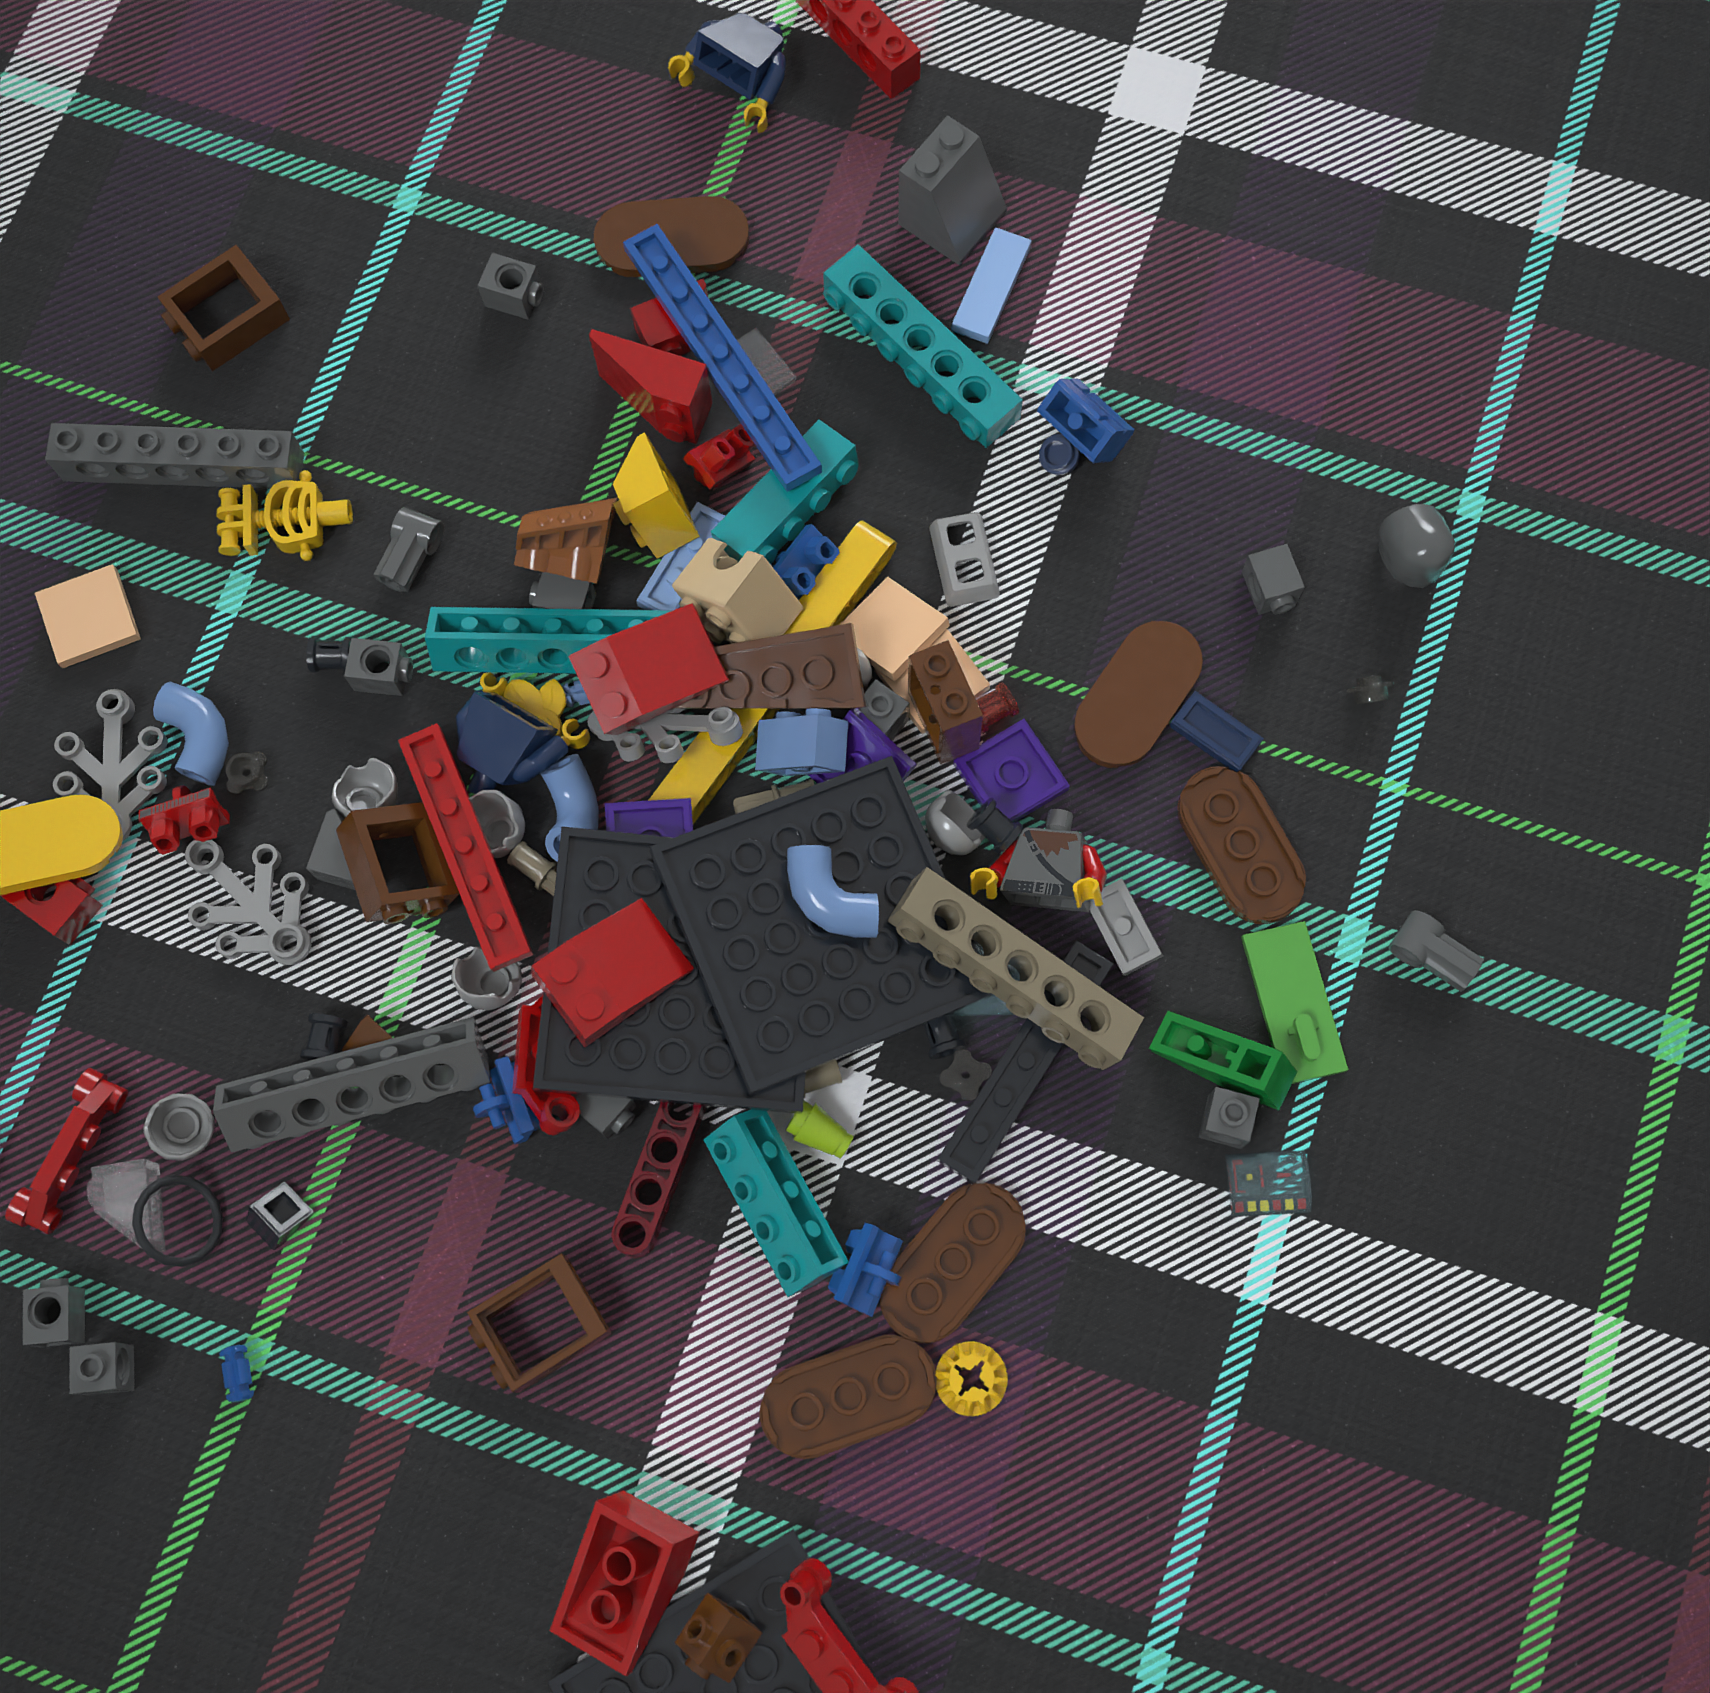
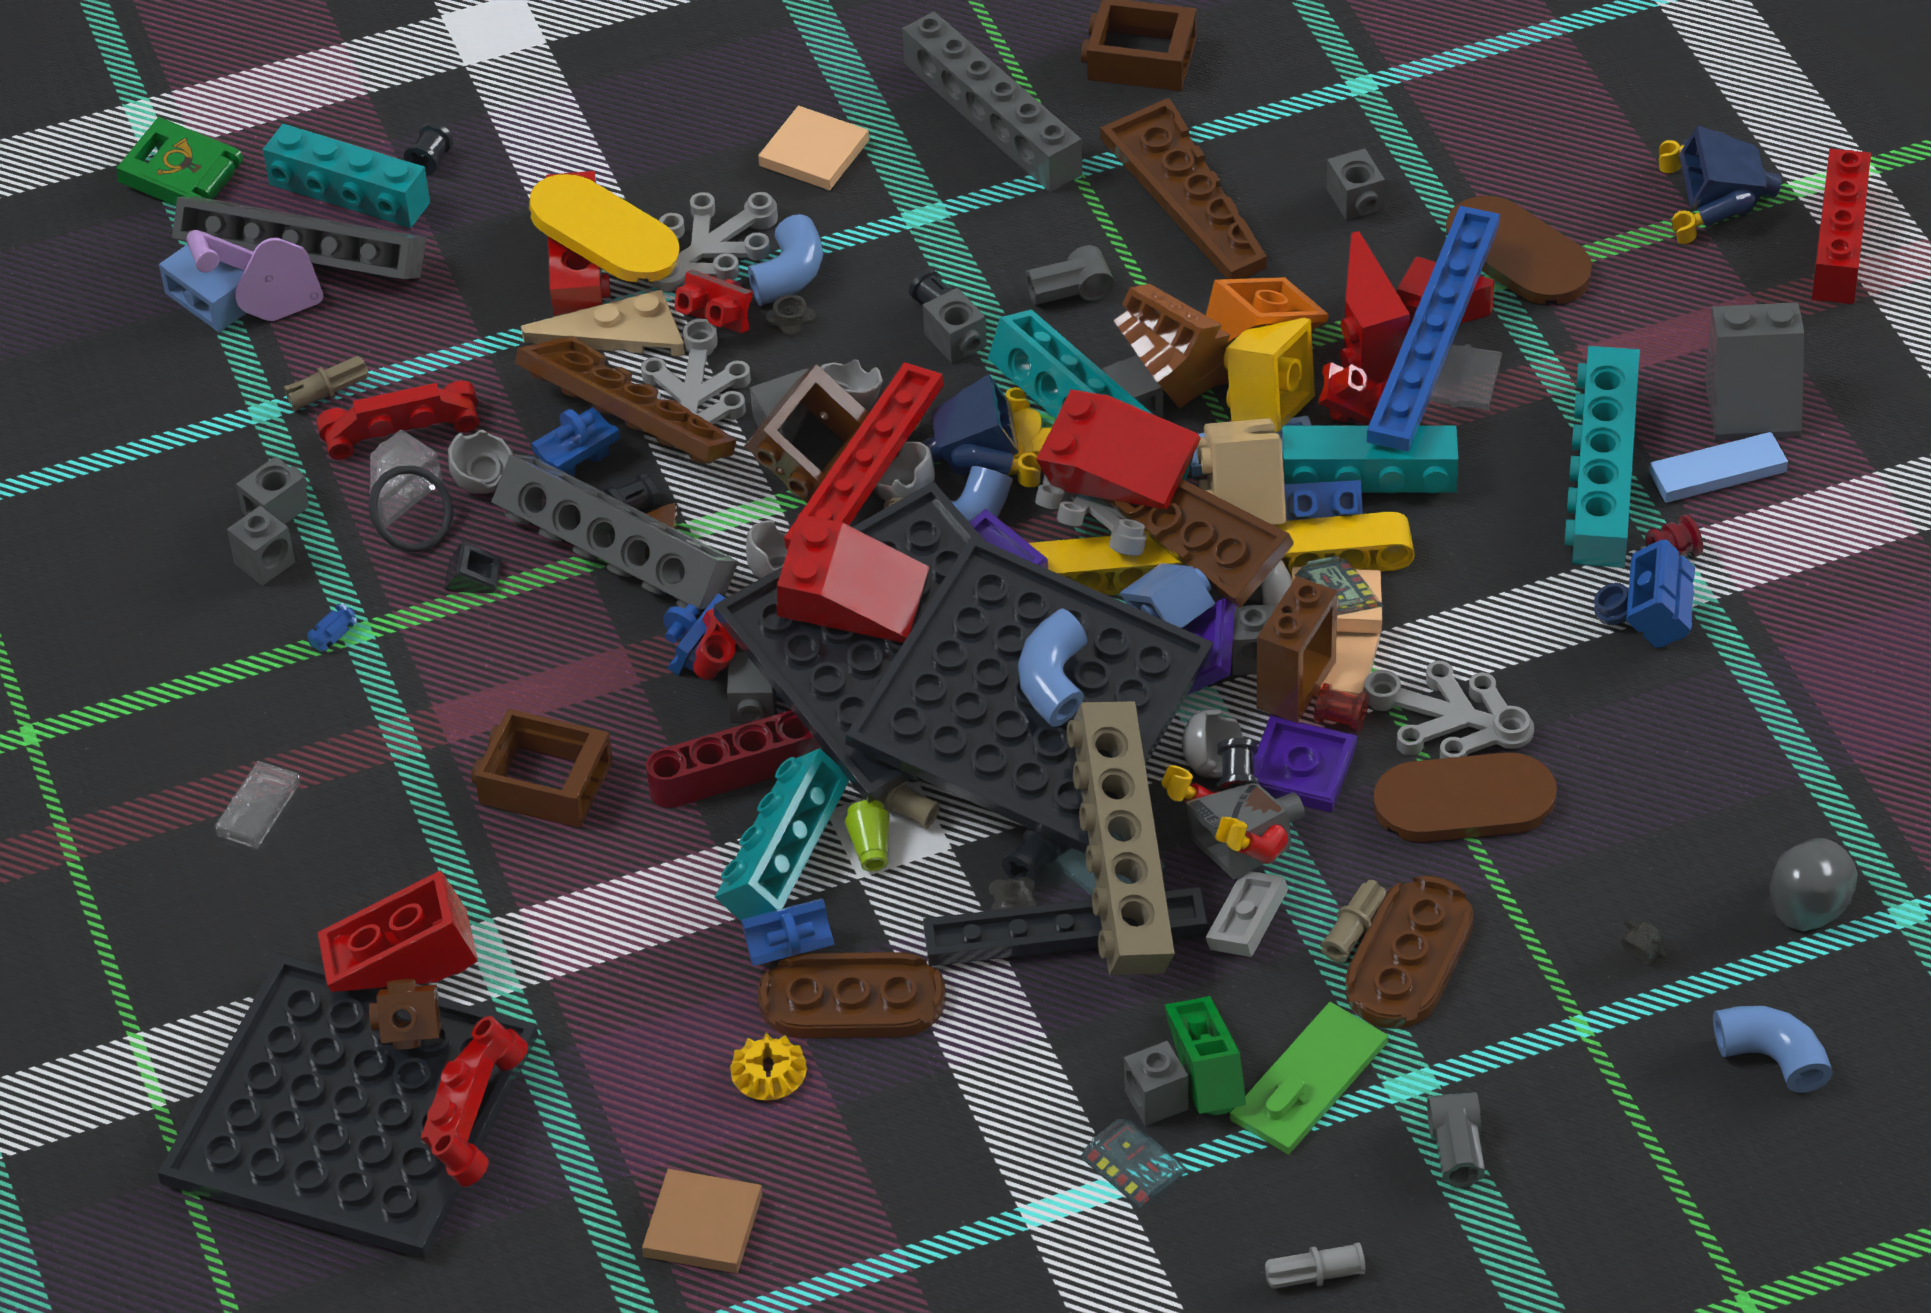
camera: 50 degrees right, 25 degrees down
(133, 897) = (614, 326): none -> tan wing
(159, 980) = (584, 375): none -> reddish brown wing
(228, 1038) = (576, 440): none -> blue hips
(311, 514) = (1016, 197): yellow torso -> none
(365, 391) = (1174, 172): none -> reddish brown wing
(367, 1573) = (257, 804): none -> clear plate
(587, 453) = (1258, 303): none -> orange slope
(848, 1396) = (676, 1001): reddish brown tile -> none
(888, 620) = (1340, 575): none -> clear light blue piece
(949, 555) = (1472, 612): light grey piece -> none
(1038, 369) = (1683, 536): none -> dark red bush
(1059, 636) = (1503, 726): none -> light grey plant
(1075, 1542) = (702, 1221): none -> medium nougat tile
(1187, 859) = (1353, 921): none -> dark tan axle
(1216, 732) = (1490, 871): dark blue tile -> none
(1273, 580) = (1667, 811): dark grey brick -> none
(1468, 1138) = (1315, 1266): none -> light grey axle
(1522, 676) = (1778, 1036): none -> medium blue cylinder

